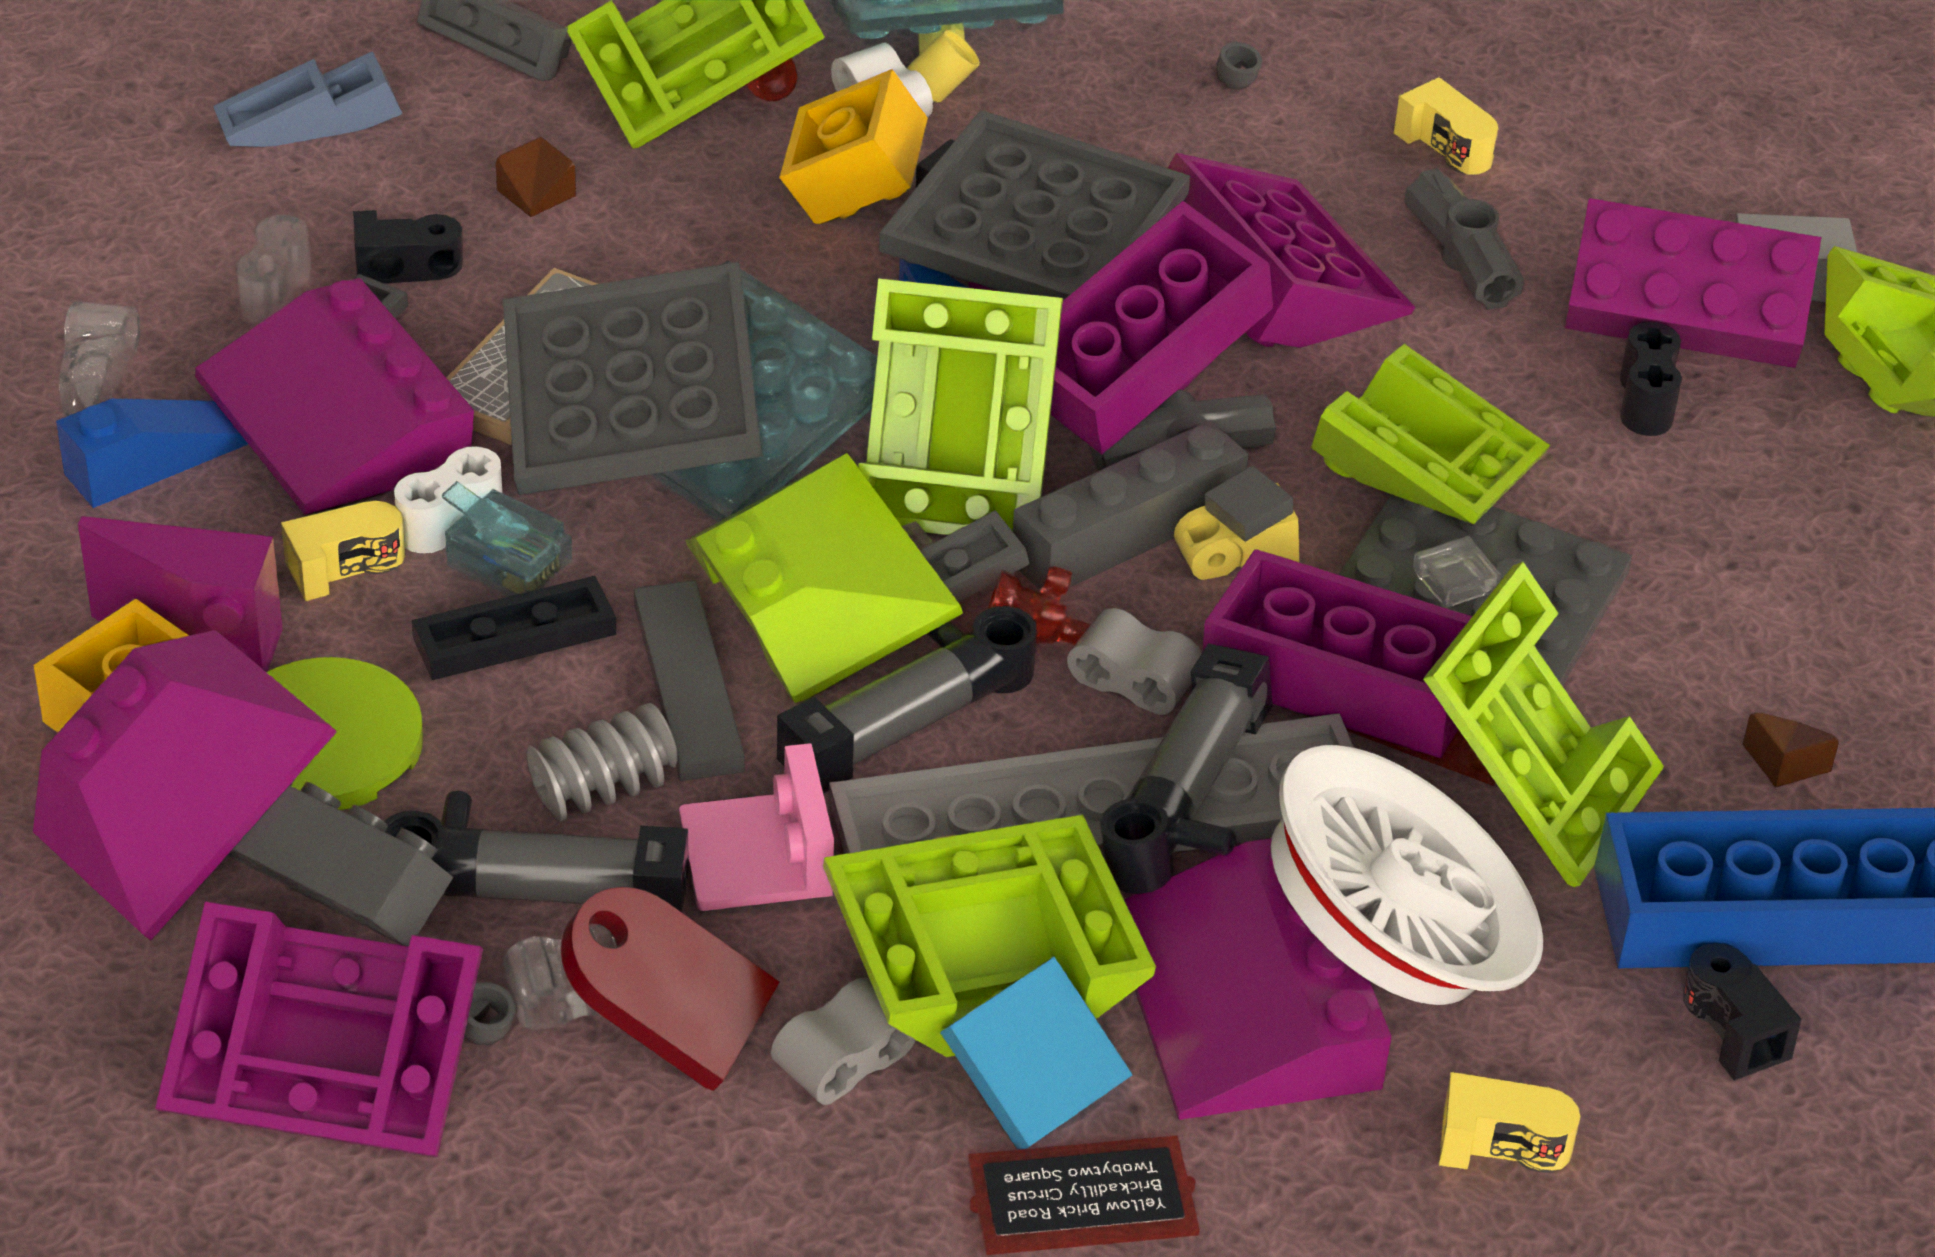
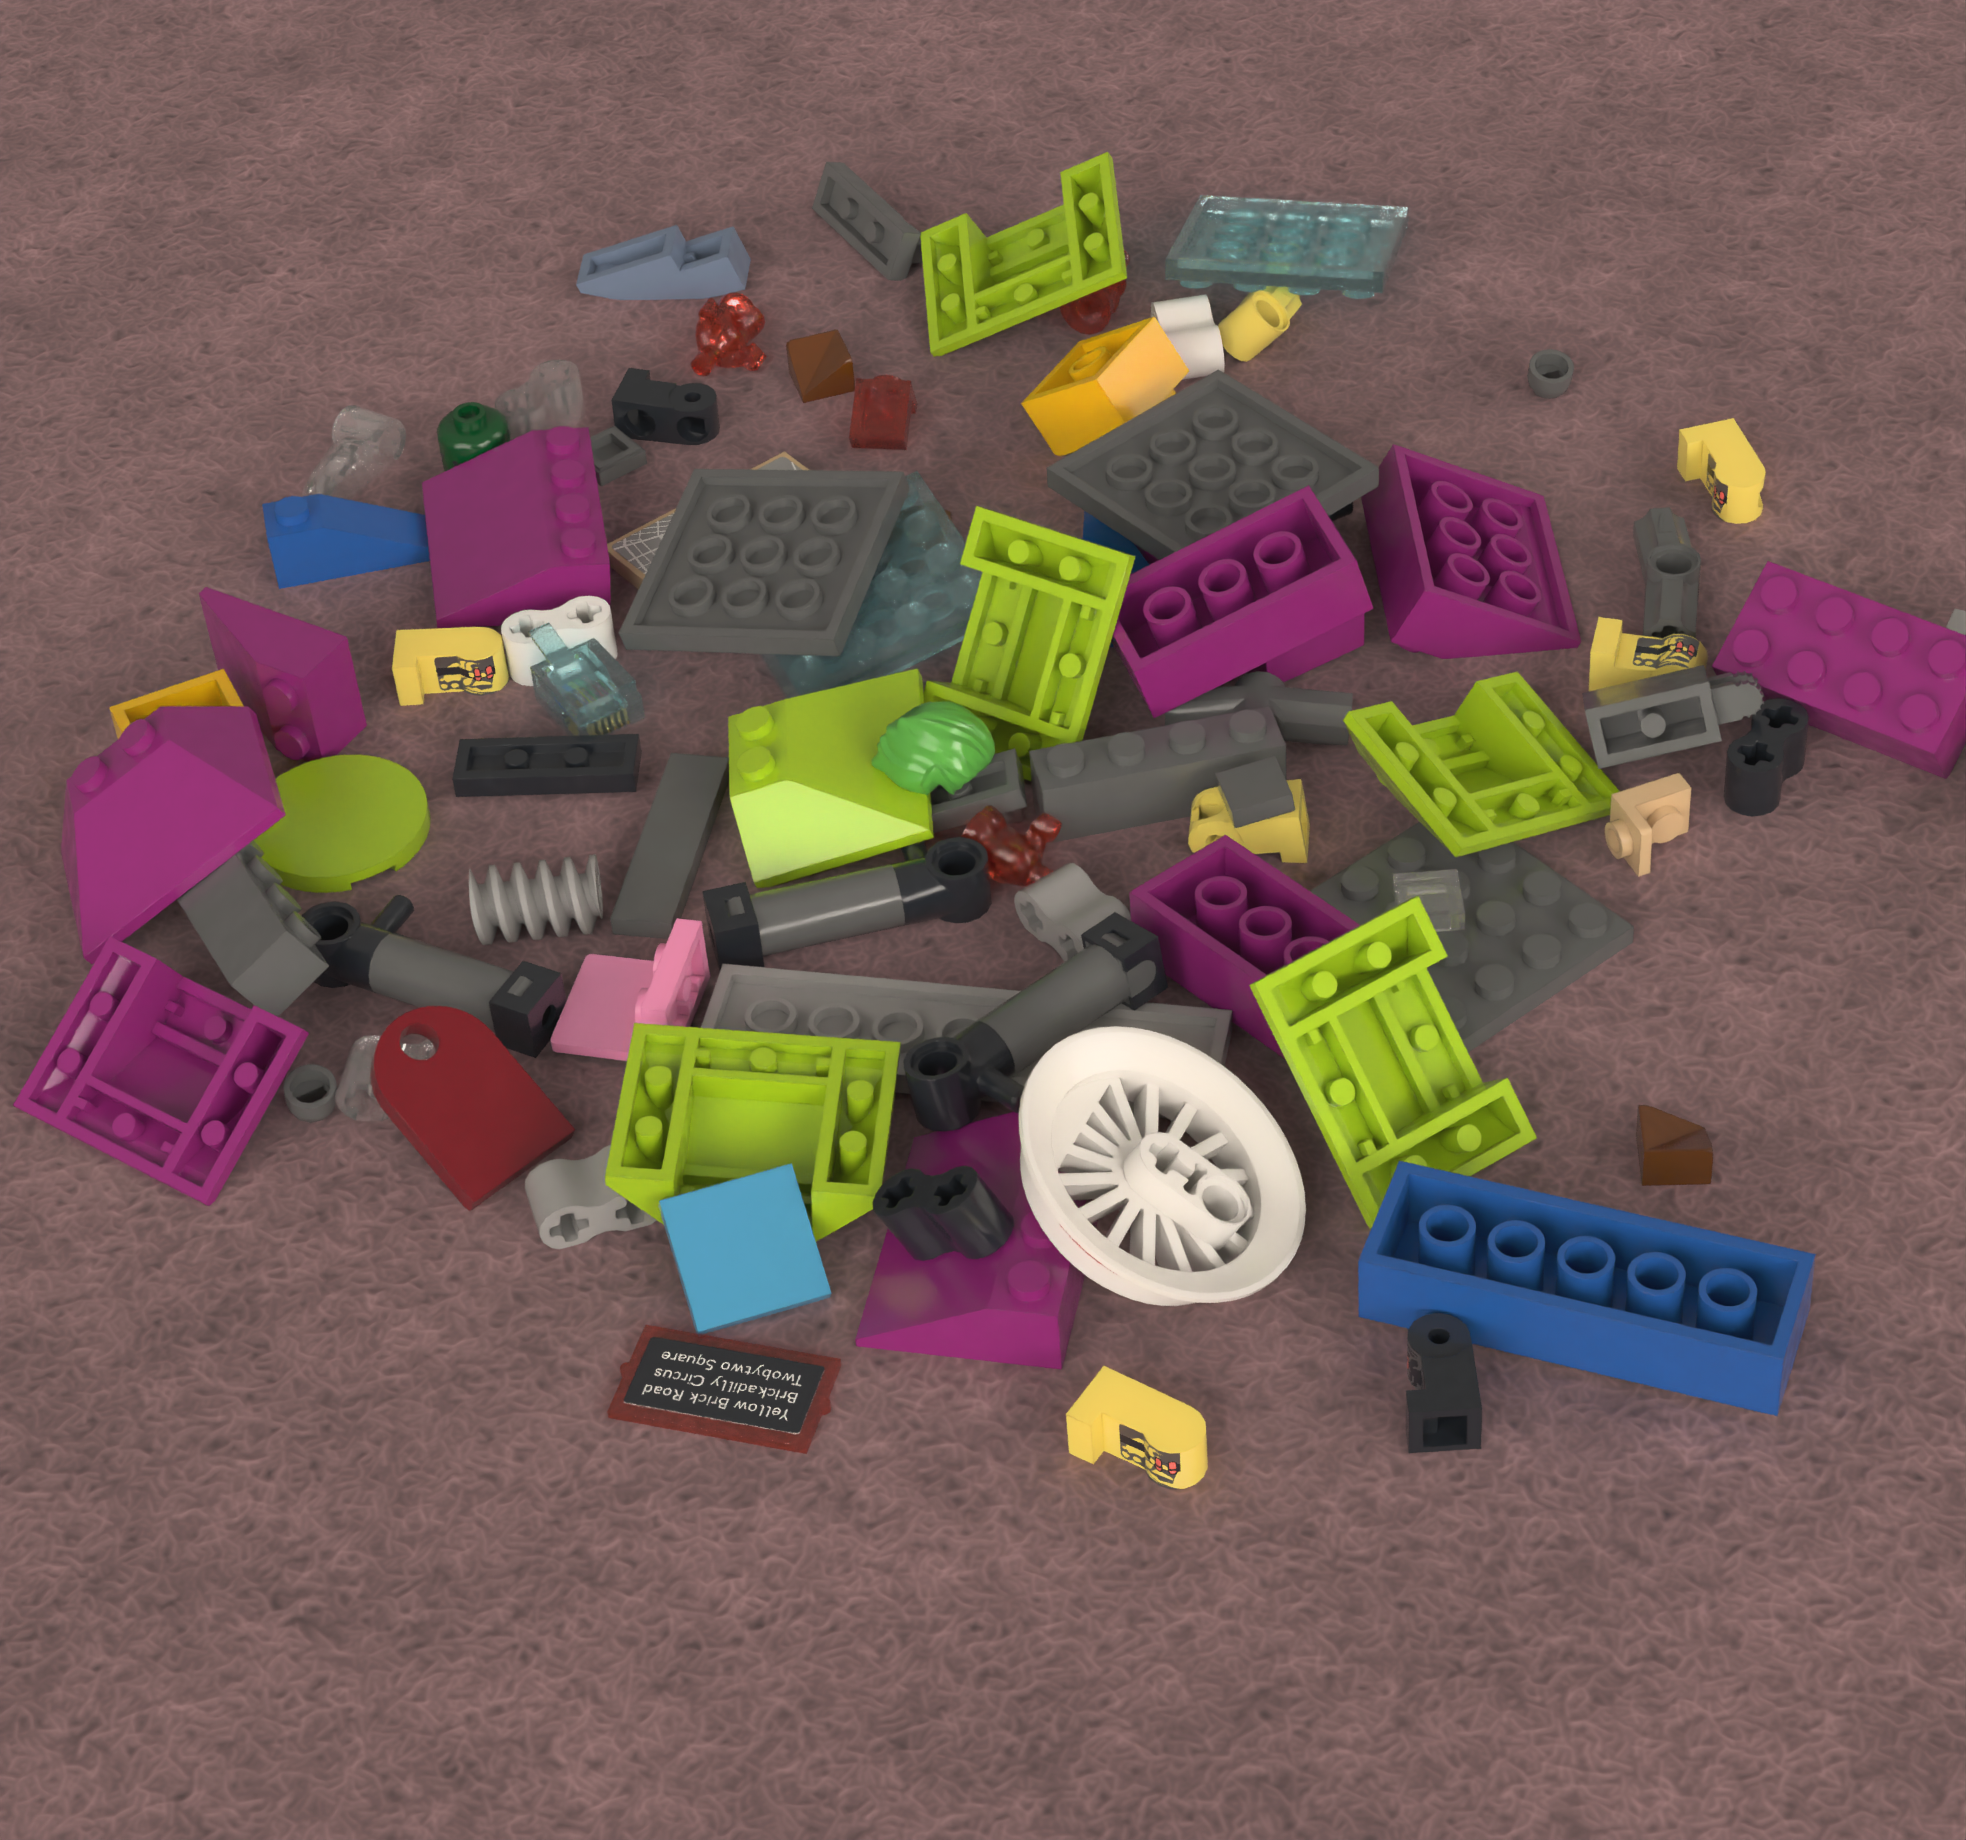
camera: 30 degrees right, 0 degrees up
(227, 310) = (470, 432): none -> dark green head
(418, 159) = (724, 333): none -> clear red piece
(631, 212) = (882, 413): none -> clear red bracket
(928, 526) = (934, 747): none -> bright green hair
(1229, 967) = (943, 1213): none -> black axle
(1492, 318) = (1630, 657): none -> light yellow leg
(1553, 356) = (1666, 713): none -> dark grey hinge
(1586, 458) = (1647, 816): none -> tan bracket

